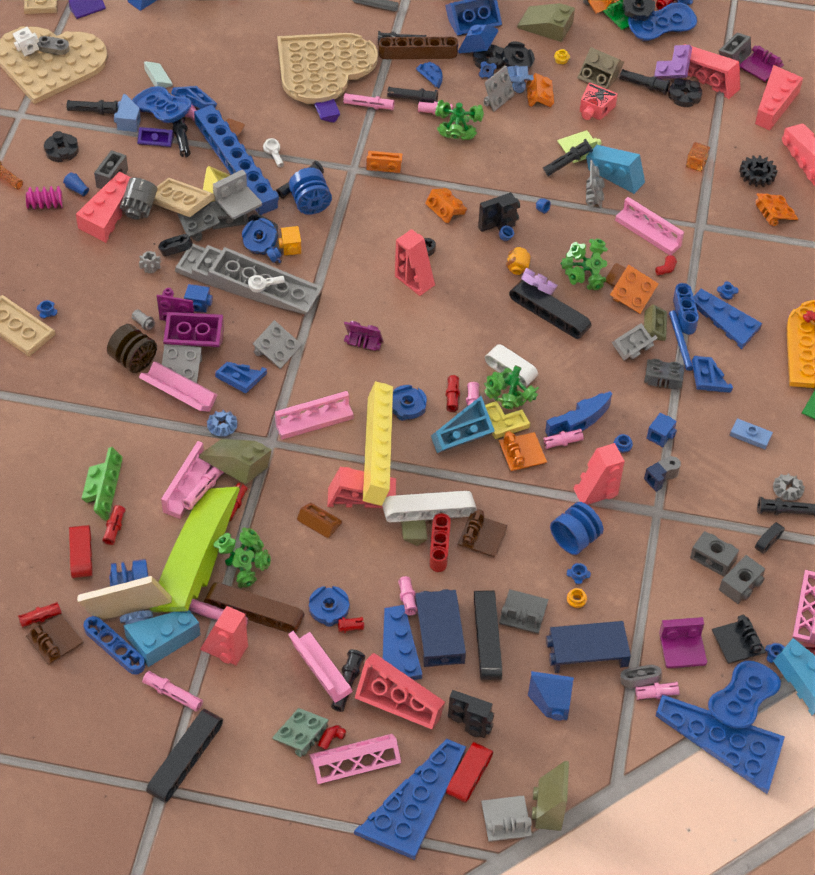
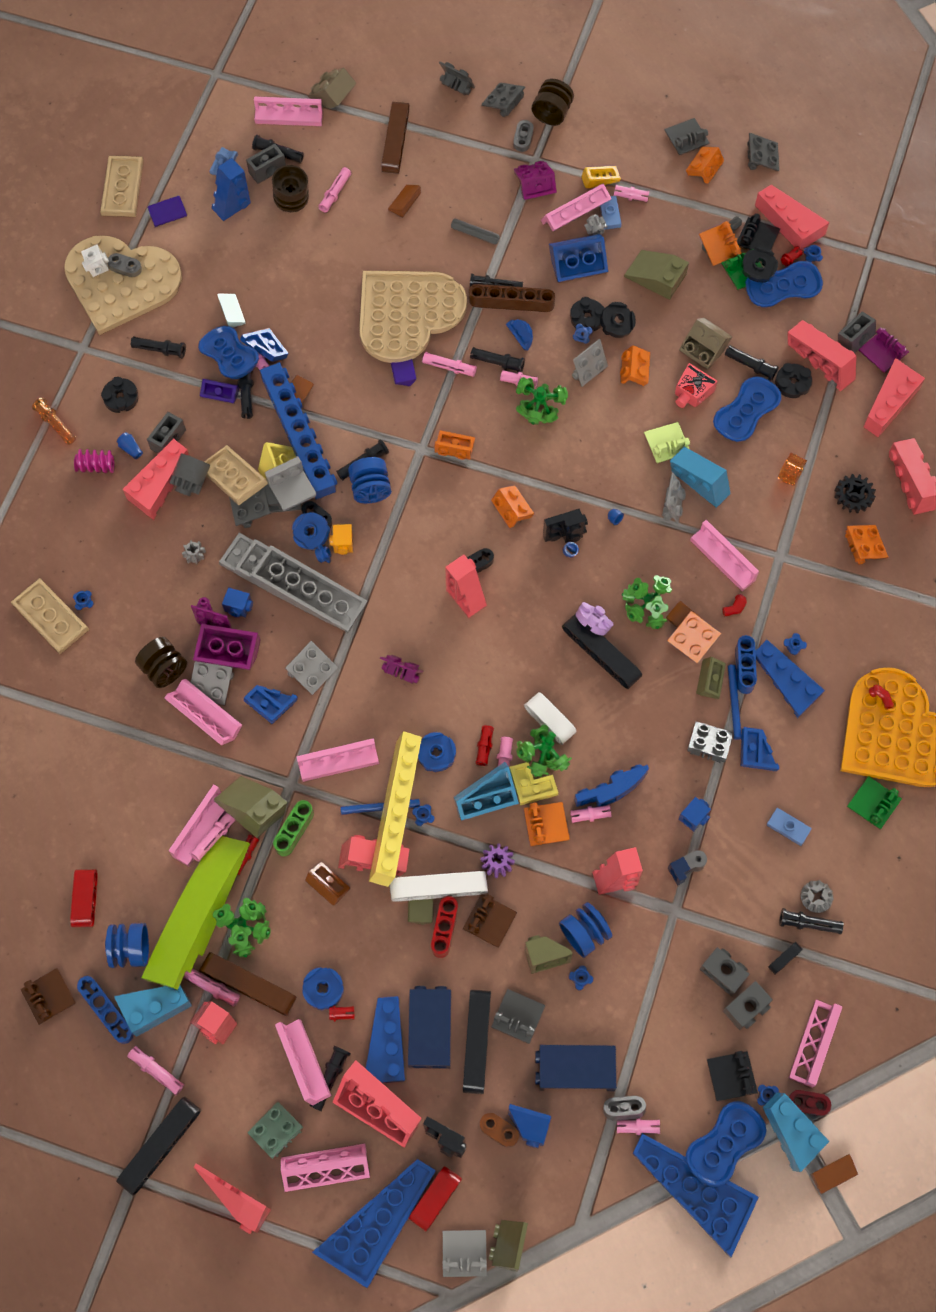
camera: 10 degrees right, 15 degrees up
(39, 614) = (36, 966): red pin -> none
(102, 482) = (114, 819): bright green bracket -> none
(114, 525) = (120, 869): red pin -> none
(125, 598) = (116, 969): tan tile -> none
(128, 115) = (192, 362): medium blue slope -> none
(136, 616) = (128, 985): medium blue gear -> none
(146, 321) = (181, 625): light grey pin -> none
(175, 245) = (222, 533): black beam -> none
(223, 429) = (244, 766): medium blue gear -> none
(258, 283) = (300, 594): white plate -> none
(272, 147) = (339, 415): white plate -> none
(278, 795) = (241, 1206): none -> coral wedge
(280, 474) = (294, 818): none -> bright green beam
(329, 734) = (304, 1137): red arm -> none
(351, 453) = (372, 807): none -> blue bar
(403, 450) = (426, 809): none -> blue plate
(407, 595) = (403, 986): bright pink pin -> none
(478, 39) = (578, 294): blue slope -> none
(481, 483) = (500, 854): none -> medium lavender gear
(517, 76) = (613, 348): medium blue hips -> none
(518, 260) = (577, 587): light orange head -> none
(521, 709) = (499, 1129): none -> dark orange plate
(543, 551) = (545, 954): none -> olive slope
(561, 56) = (666, 325): yellow plate -> none
(574, 154) = (657, 457): black pin -> none
(576, 593) = (577, 1001): light orange plate -> none
(623, 439) = (654, 820): blue plate -> none
(633, 341) = (684, 702): light grey bracket -> none
(645, 119) = (740, 417): none -> blue plate
(678, 66) = (790, 349): medium lavender plate -> none
(683, 642) = (673, 1076): magenta bracket -> none

